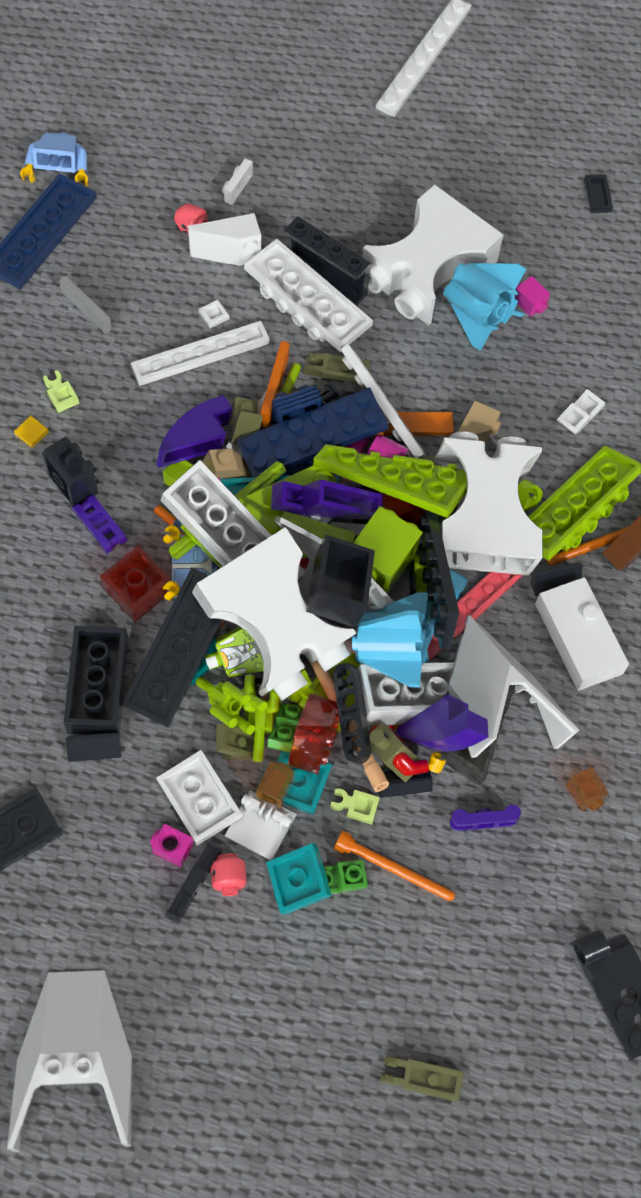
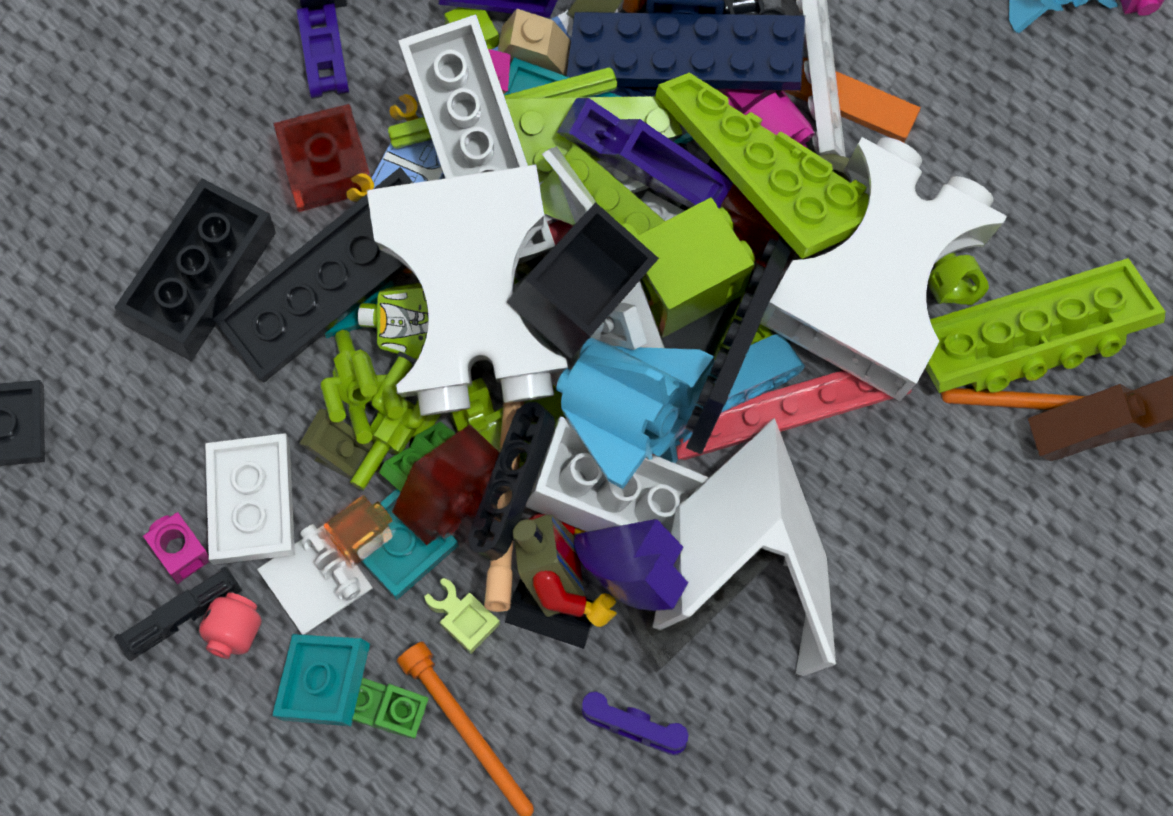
camera: 30 degrees right, 5 degrees up
(93, 747) = (146, 360): black slope -> none
(481, 421) = (950, 142): tan slope -> none
(555, 577) = (940, 426): black slope -> none
(581, 412) = (1121, 193): white slope -> none
(581, 634) = (929, 524): white brick -> none
(587, 790) = (808, 758): clear orange brick -> none

